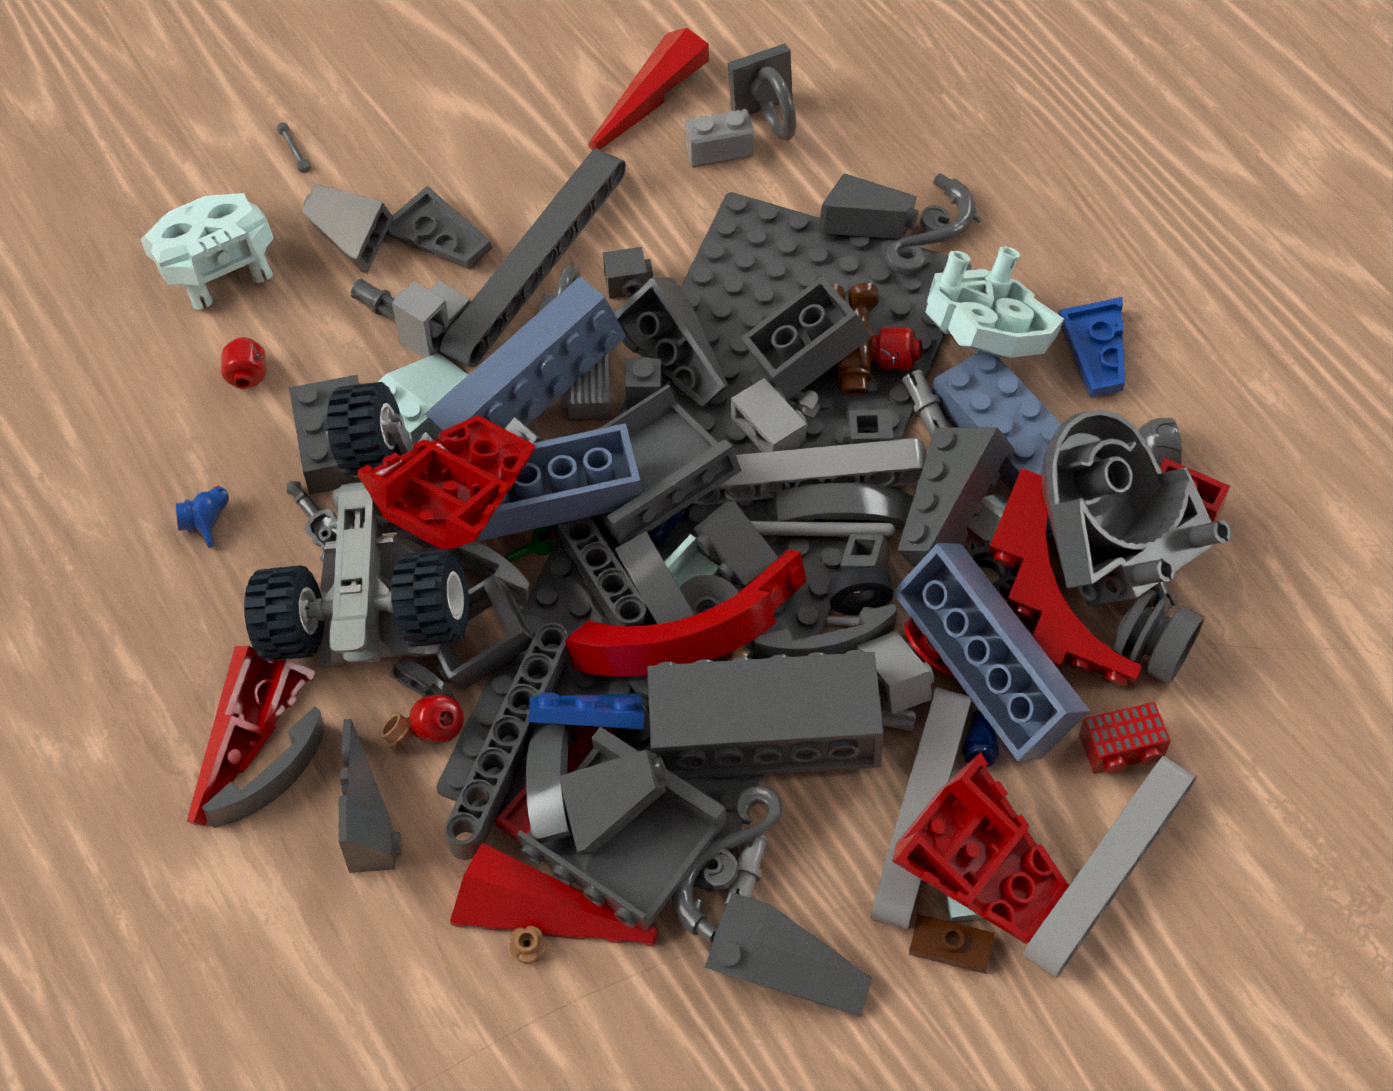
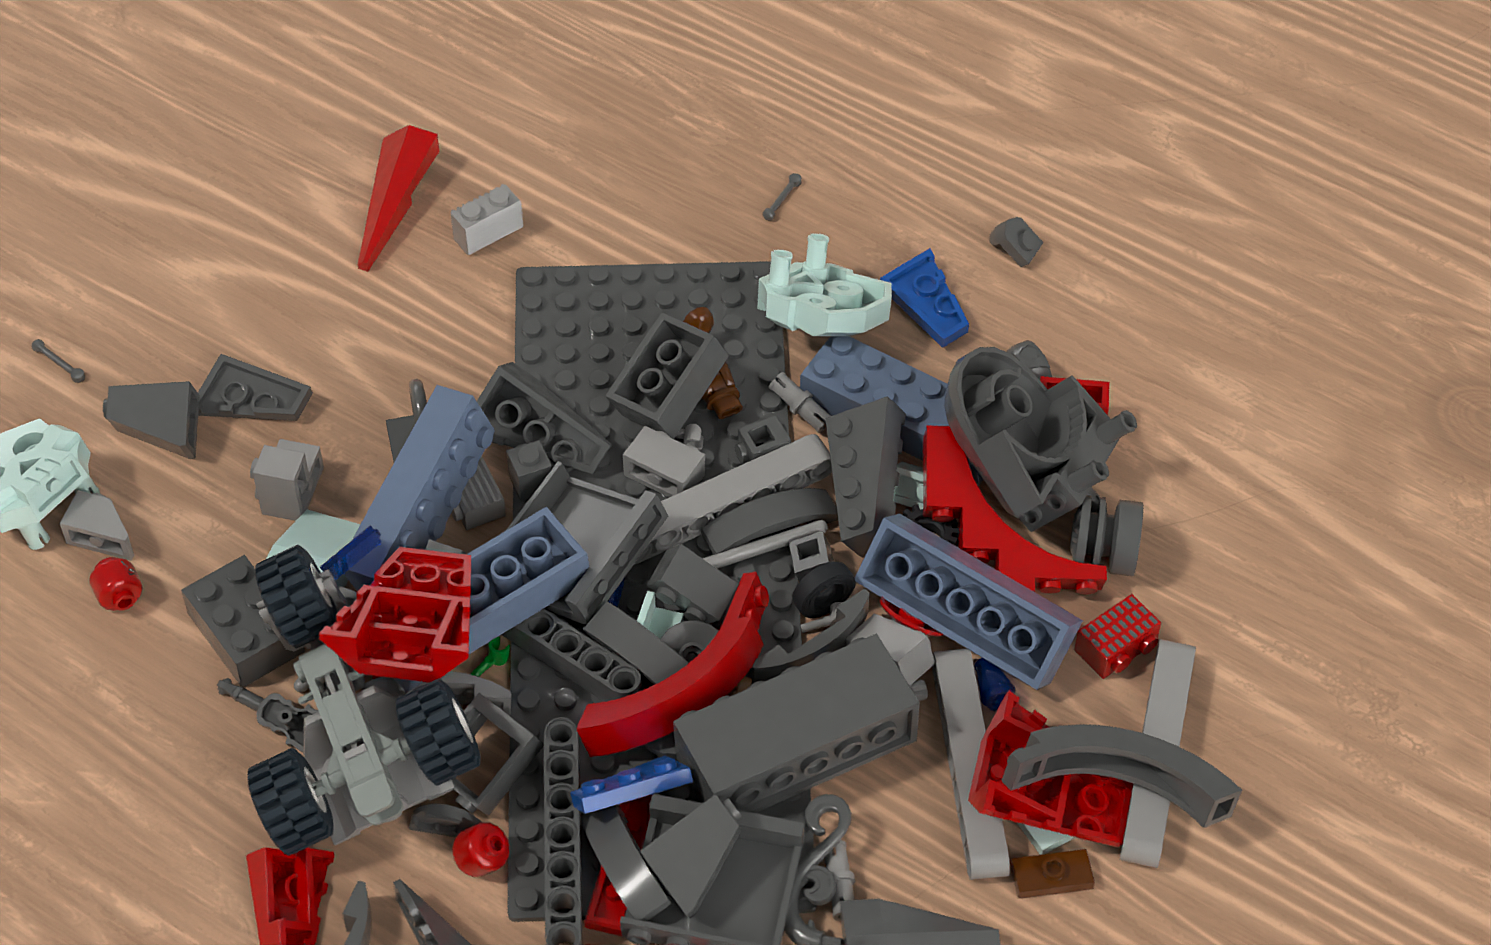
camera: 25 degrees left, 5 degrees down
(202, 512) = (145, 741): blue animal -> none
(252, 305) = (96, 526): none -> light grey slope
(377, 299) = (222, 479): dark grey axle -> none
(397, 731) = (445, 876): medium nougat plate -> none
(432, 406) = (352, 552): none -> clear blue piece
(532, 258) = (358, 390): dark grey beam -> none
(626, 271) = (458, 370): dark grey brick -> none
(763, 82) = (507, 153): dark grey tile -> none
(867, 210) = (661, 242): dark grey slope -> none
(896, 348) = (751, 360): red head -> none
(931, 223) = (726, 233): dark grey plant -> none
(1025, 191) = (794, 181): none -> dark grey hinge
(1069, 860) = (1127, 756): none -> dark grey arch
(1212, 316) = (1017, 240): none -> dark grey plate

